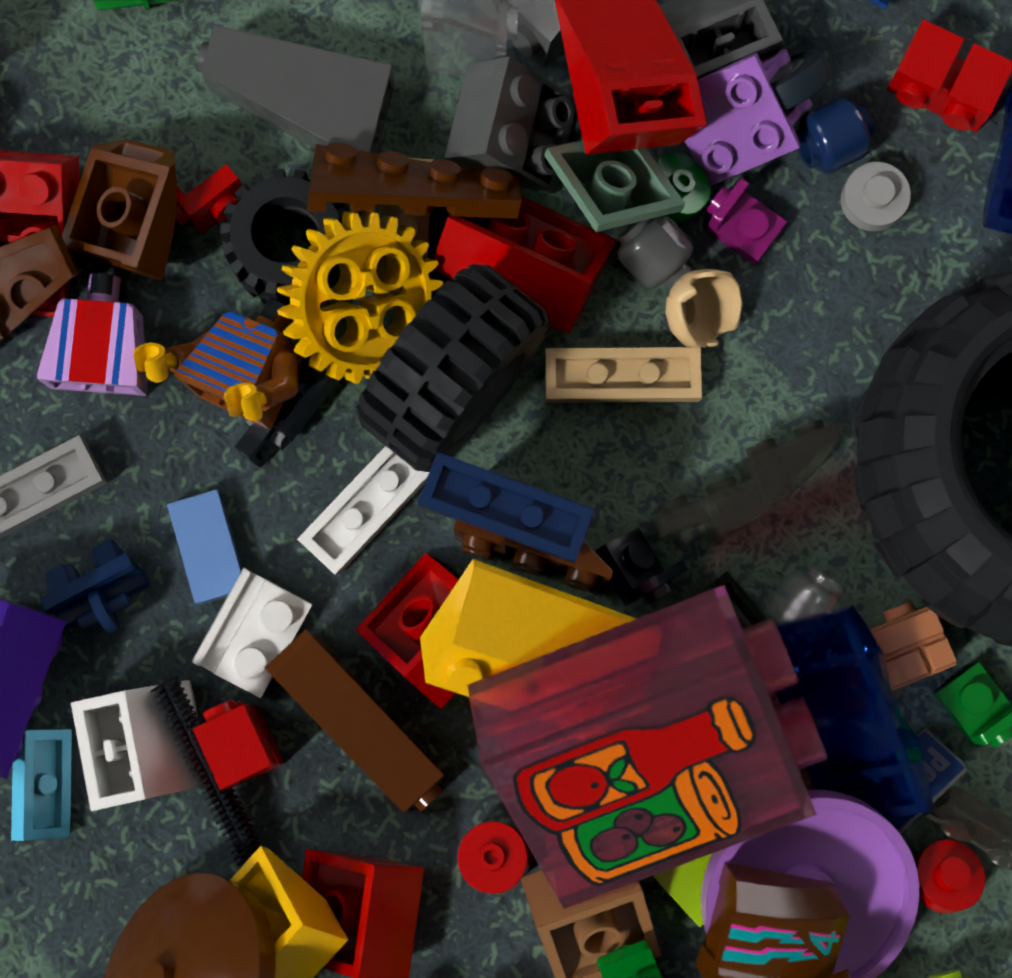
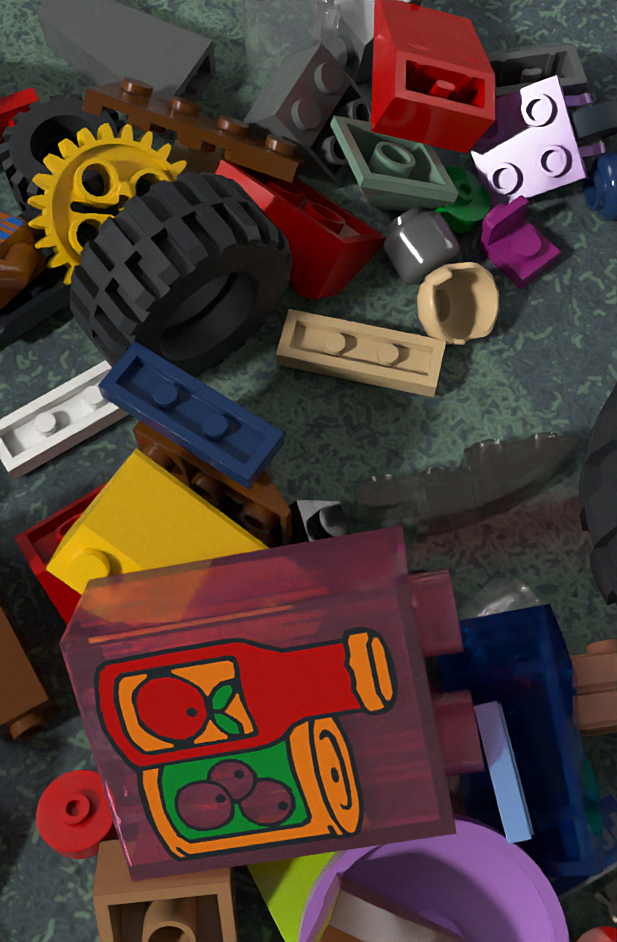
camera: 15 degrees right, 15 degrees down
(840, 749) = (503, 772): none -> medium blue tile

